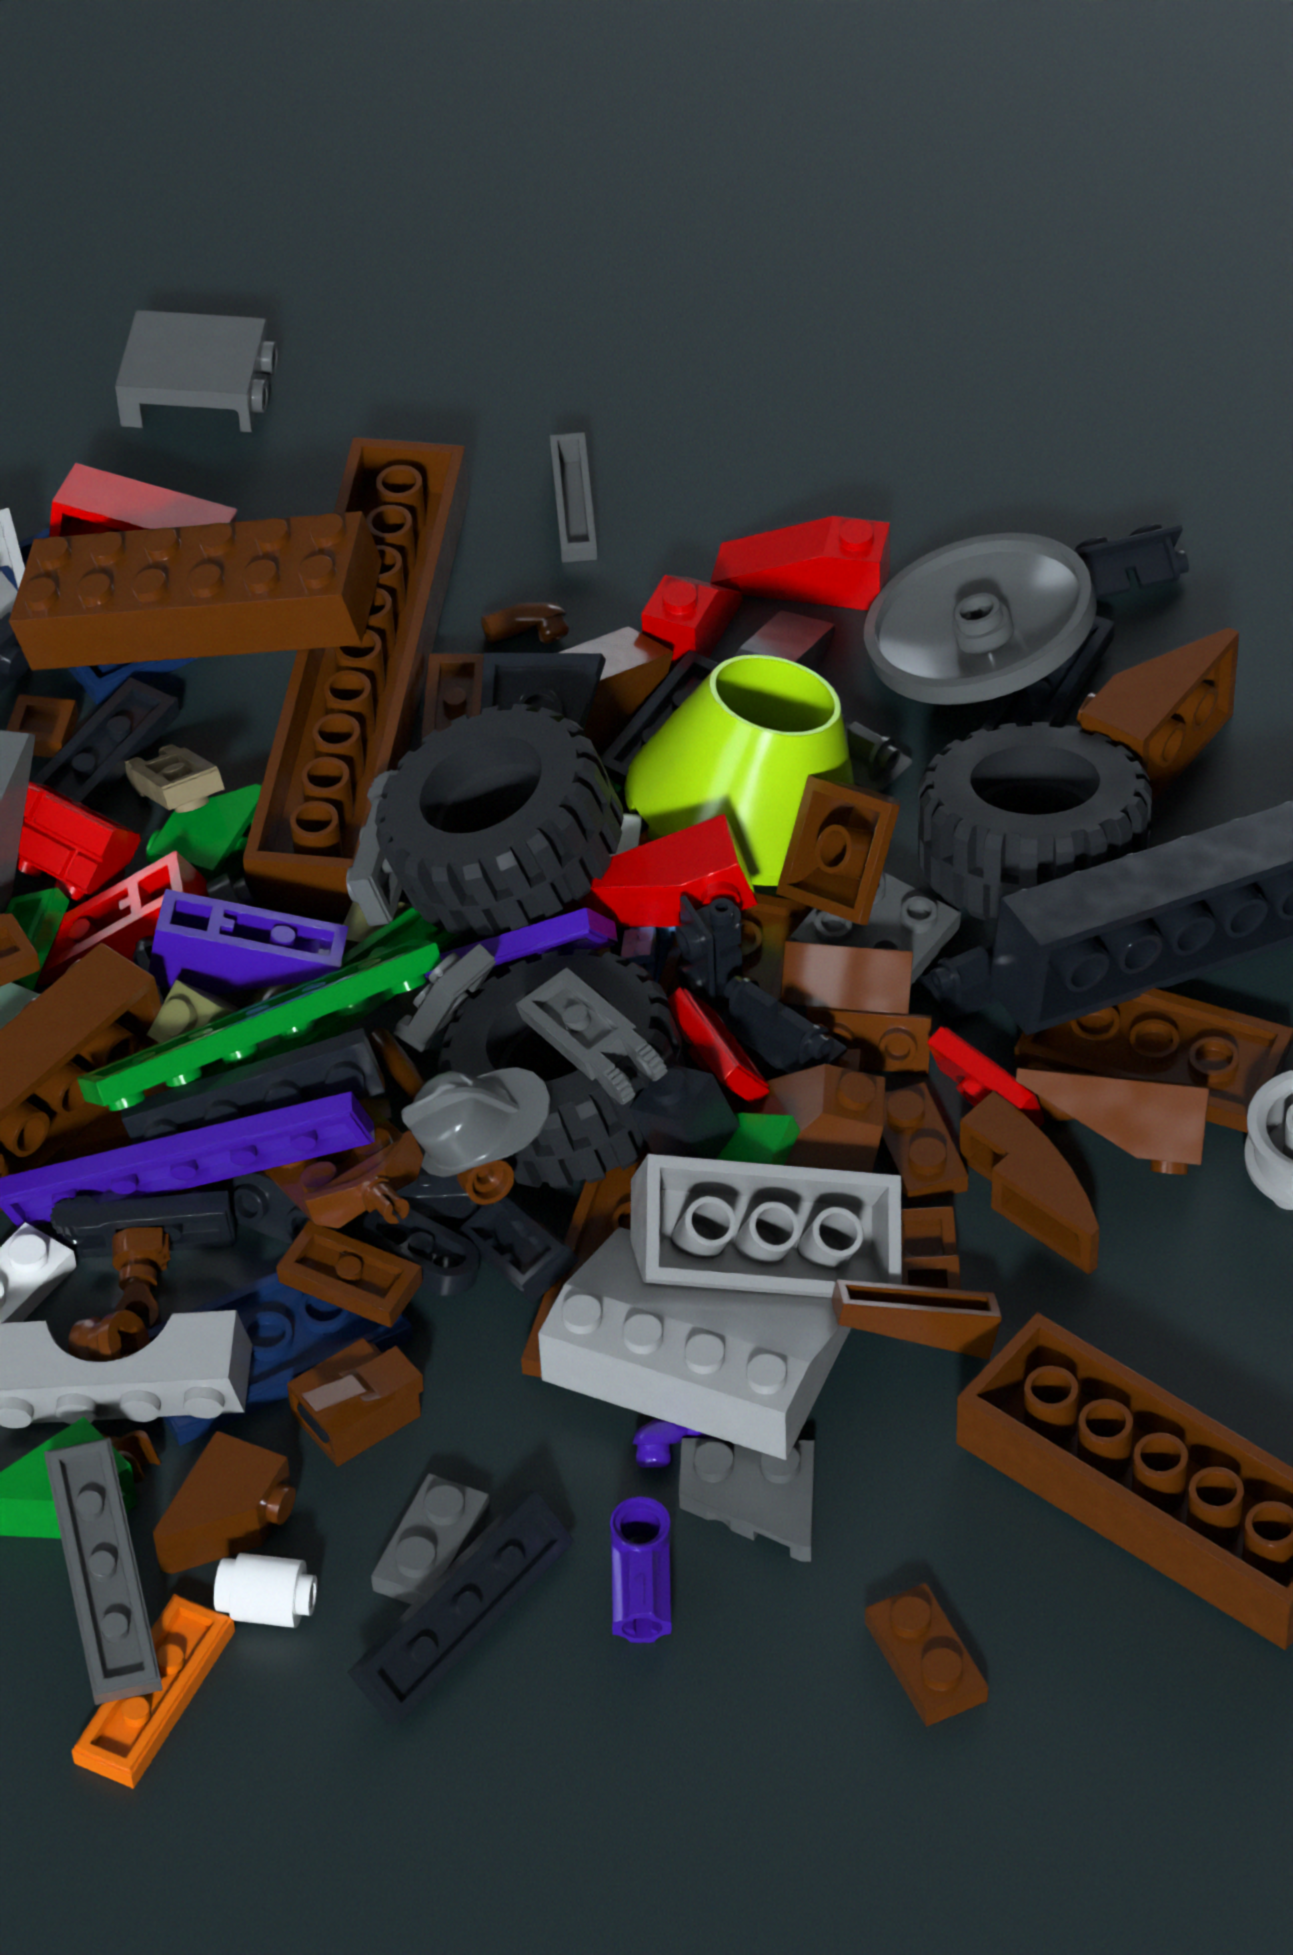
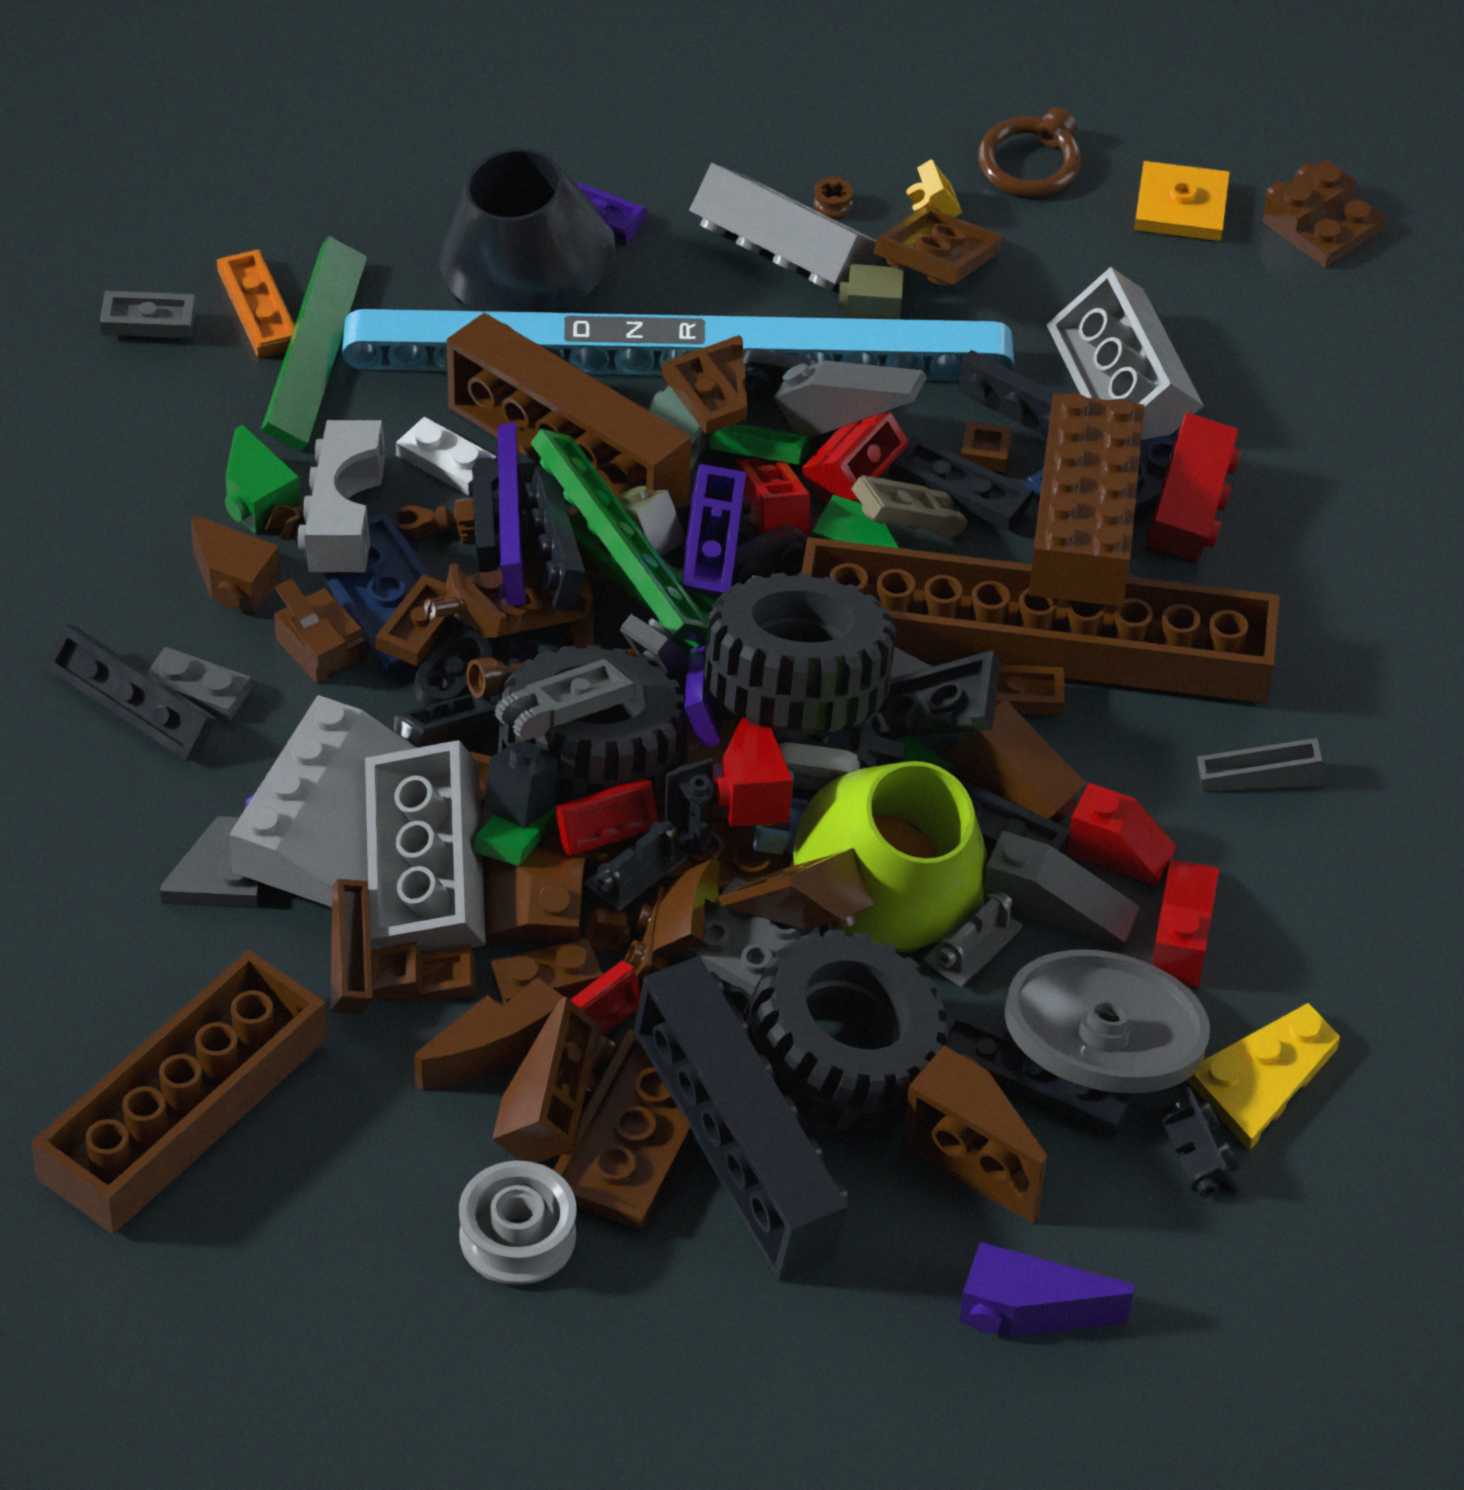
camera: 85 degrees right, 0 degrees up
(103, 1571) = (168, 492): dark grey tile -> none
(108, 1338) = (374, 486): reddish brown wheel -> none
(132, 1730) = (92, 542): orange tile -> none
(195, 364) = (1389, 521): dark grey panel -> none
(265, 1589) = (156, 588): white brick -> none
(476, 1119) = (515, 649): dark grey piece -> none
(524, 617) = (1119, 736): reddish brown arm -> none
(641, 1570) = (162, 789): dark purple piece -> none
(926, 1654) = (63, 960): reddish brown plate -> none
(997, 500) = (1263, 1071): none -> yellow wing

